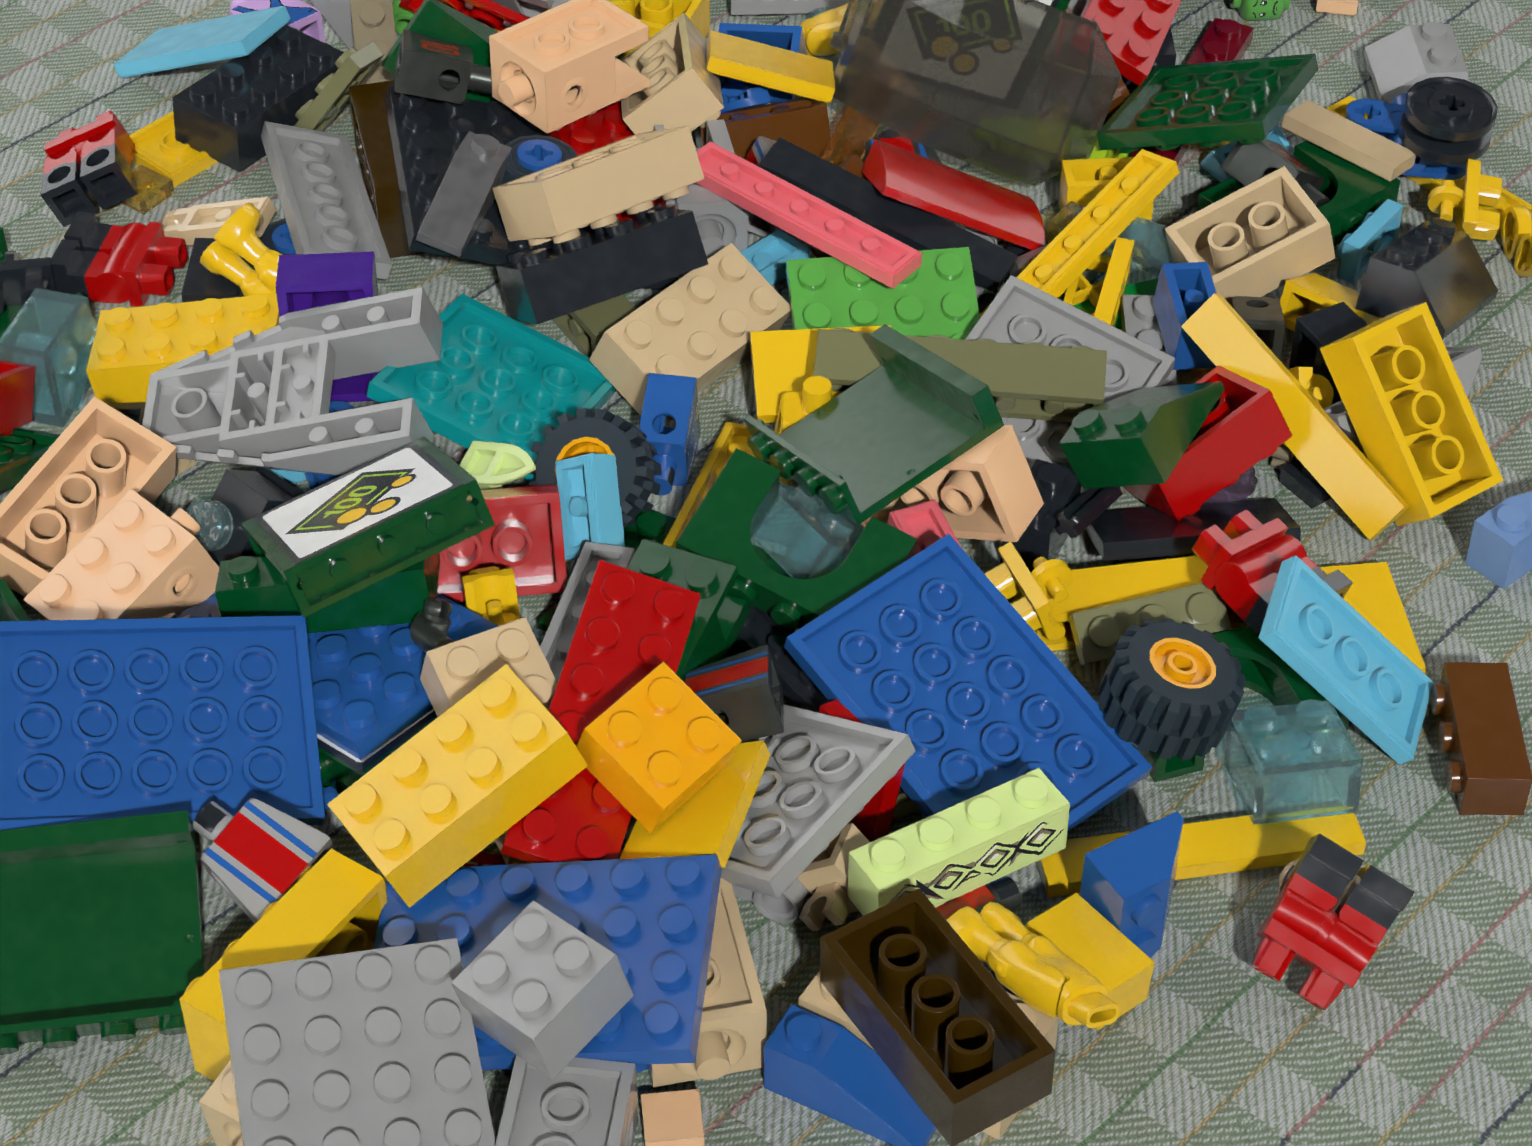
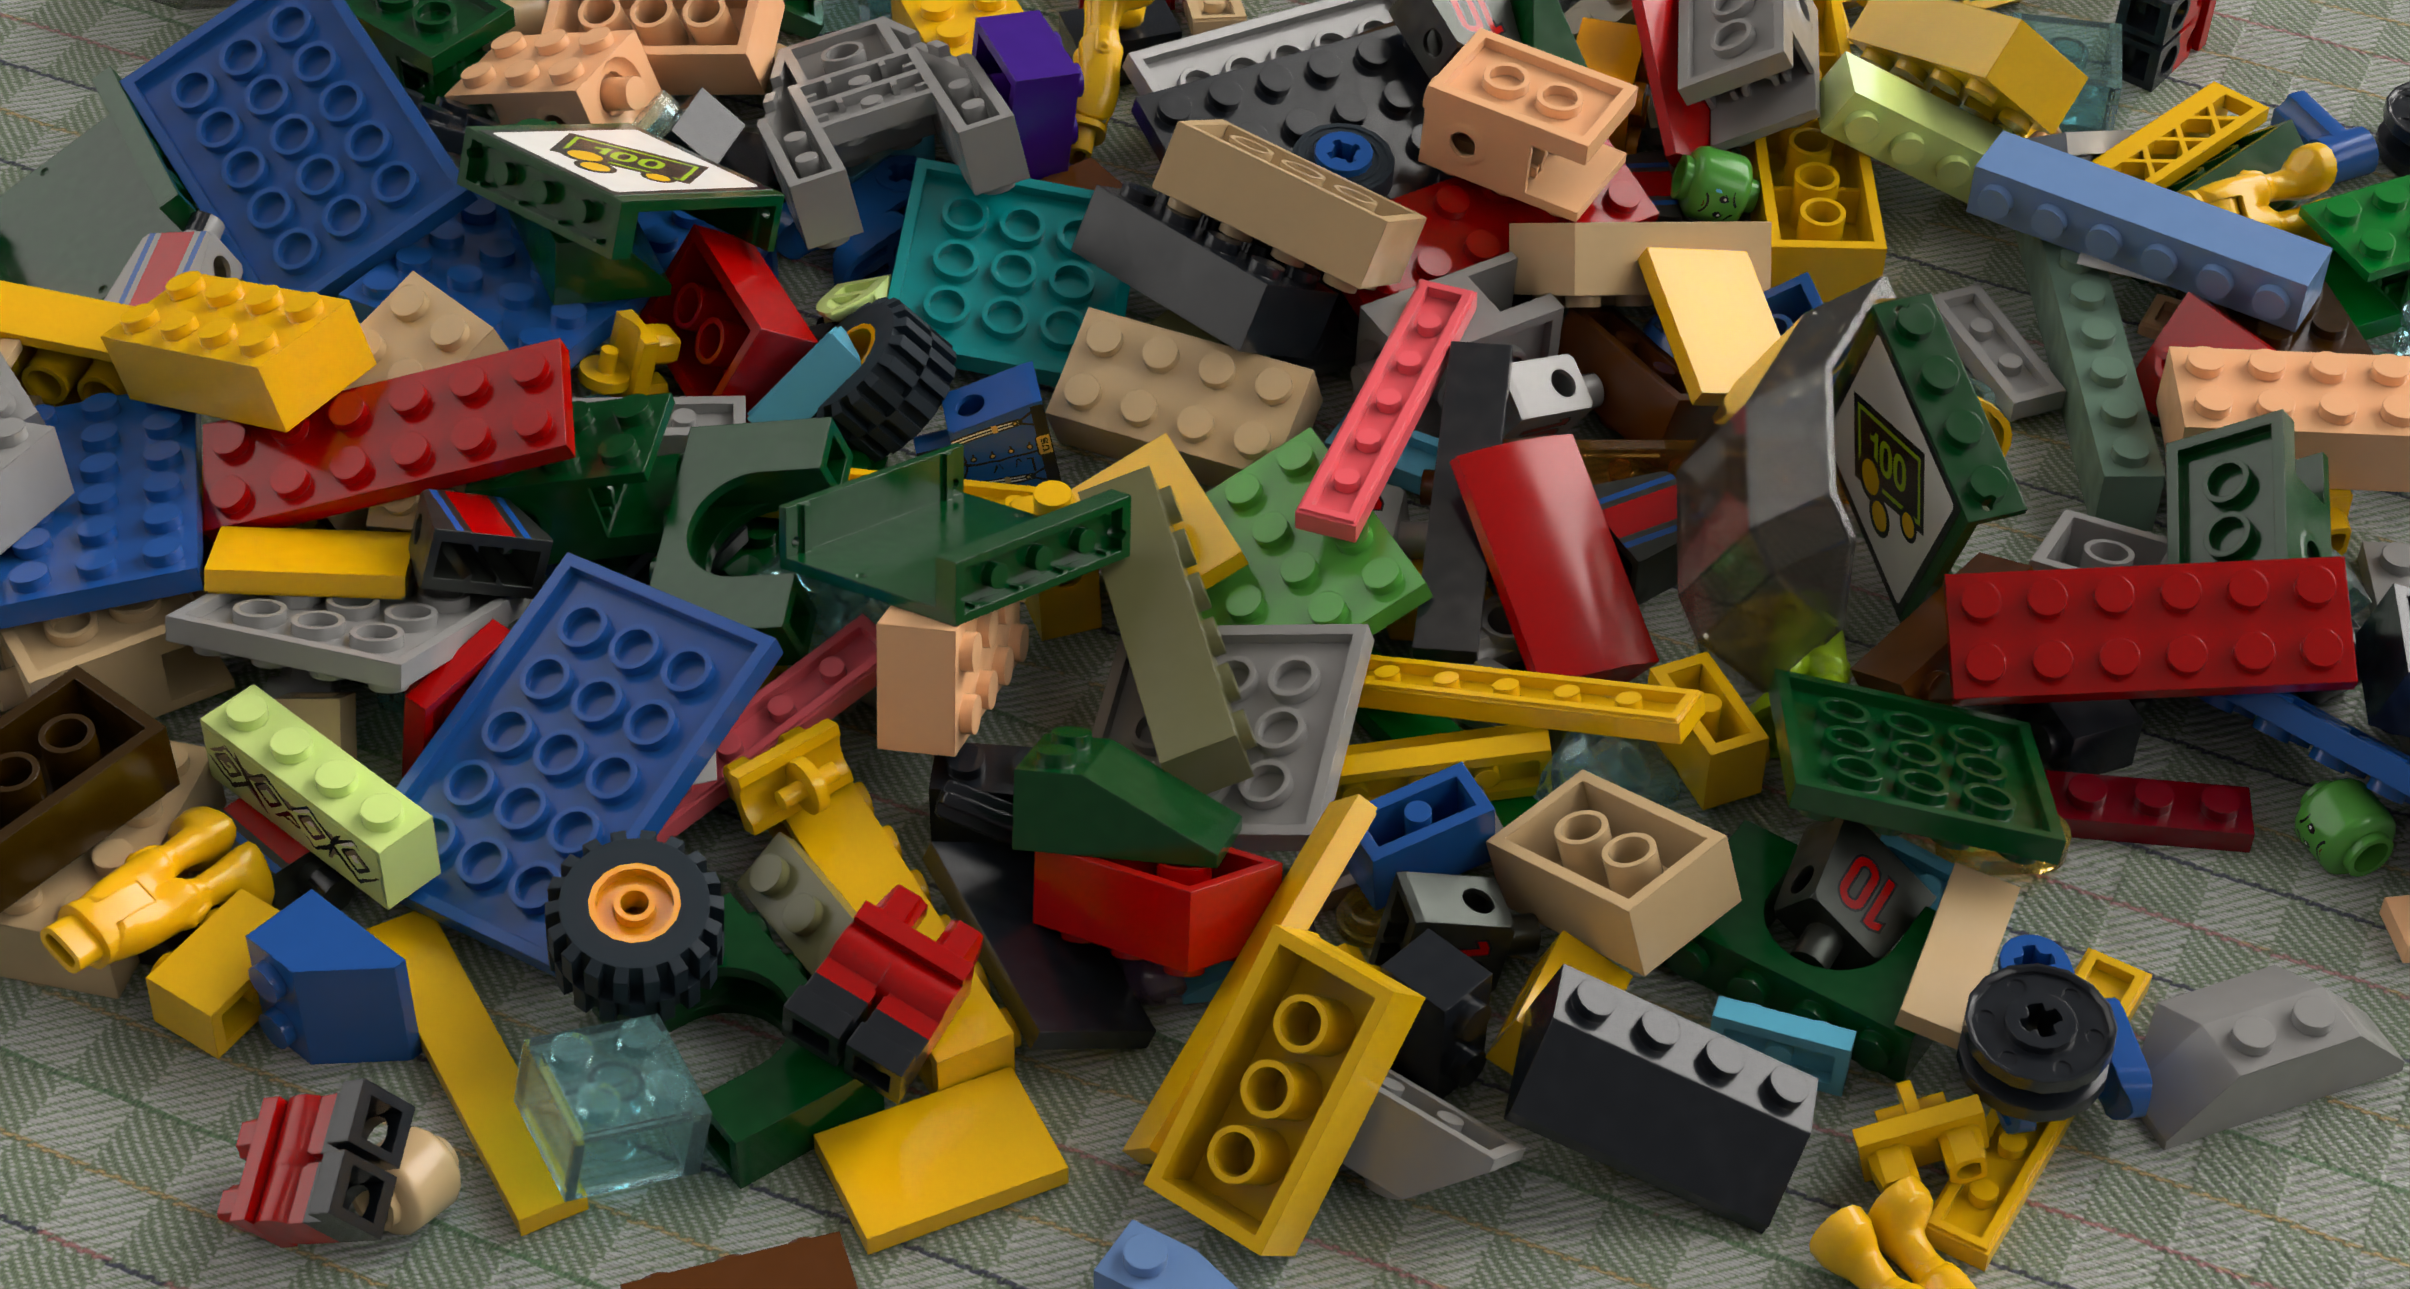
camera: 70 degrees right, 0 degrees up
(432, 624) = (512, 295): pearl dark grey arm -> none
(464, 193) = (1244, 93): flat silver slope -> none
(657, 747) = (323, 473): light orange brick -> none
(1346, 660) = (765, 1101): medium azure tile -> none

